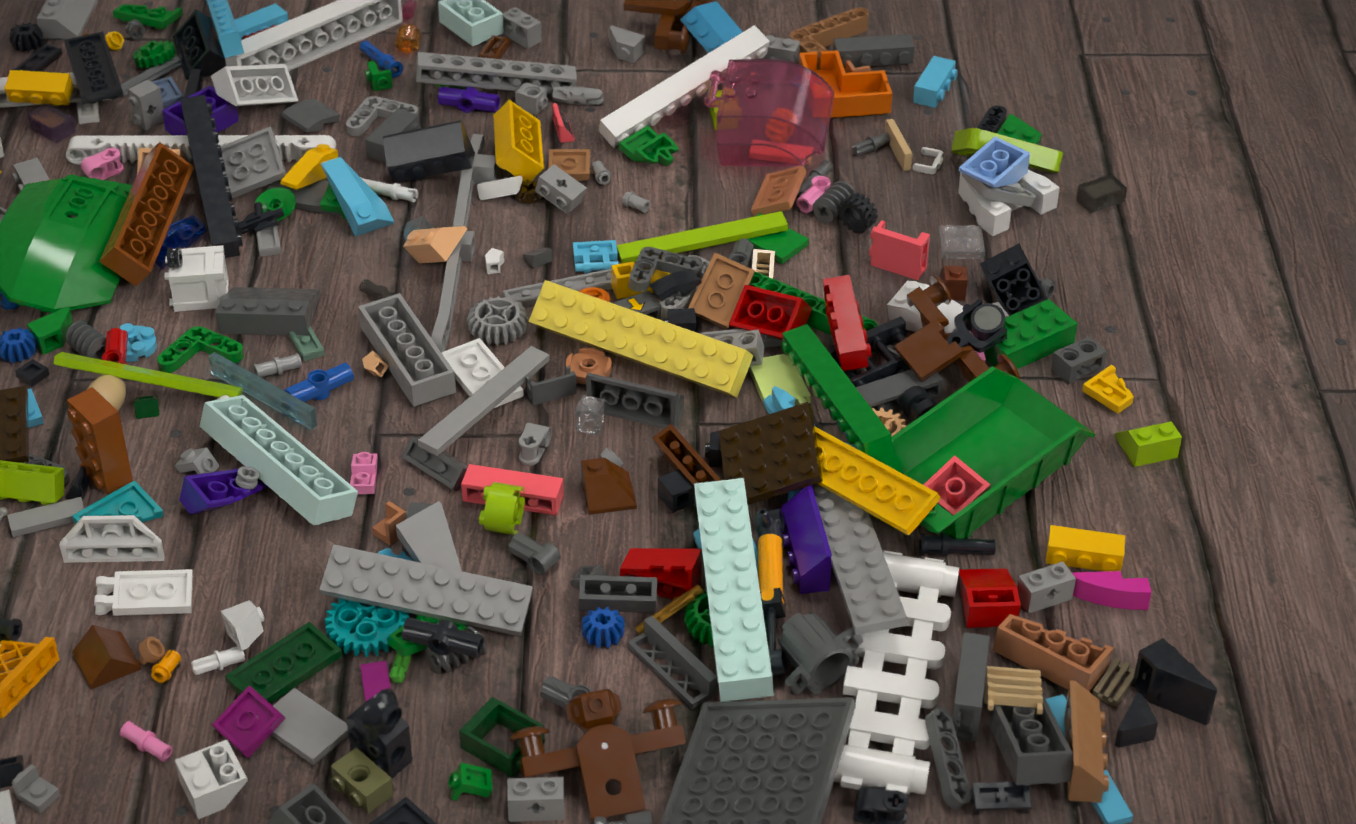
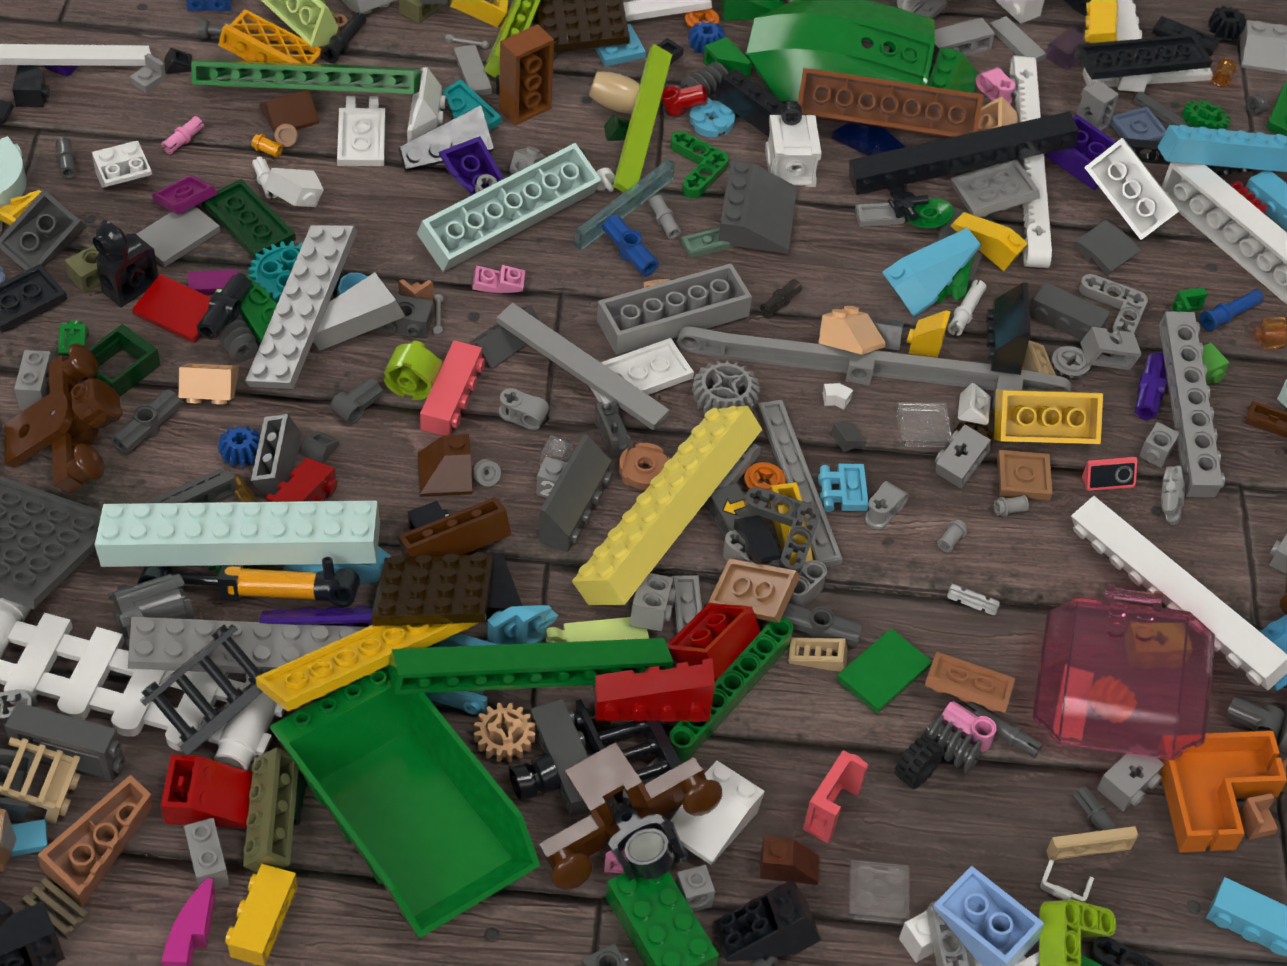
camera: 90 degrees right, 10 degrees up
(43, 151) = (1016, 39): none -> light grey tile
(73, 630) = (306, 76): none -> green brick
(114, 40) = (1232, 88): yellow plate -> none
(131, 301) = (748, 100): none -> black slope
(170, 517) = (426, 148): none -> wing
(425, 701) = (173, 307): none -> red tile
(429, 199) = (928, 335): none -> yellow slope
(433, 111) = (1119, 344): none -> light grey brick
(519, 216) = (923, 424): none -> clear plate
(520, 662) = (207, 382): none -> light nougat slope
(611, 229) = (885, 505): none -> light grey piece
(615, 415) = (548, 475): none -> light grey brick
(649, 147) = (1065, 556): green plate -> none
(683, 318) = (710, 555): black brick -> none
(695, 194) = (973, 599): none -> light grey axle
(707, 236) = (877, 596): lime tile -> none
(844, 127) = (1129, 778): none -> light grey brick
(914, 571) = (213, 717): none -> black fence
(957, 485) = (354, 772): coral brick -> none
(997, 548) = (271, 811): none -> olive brick

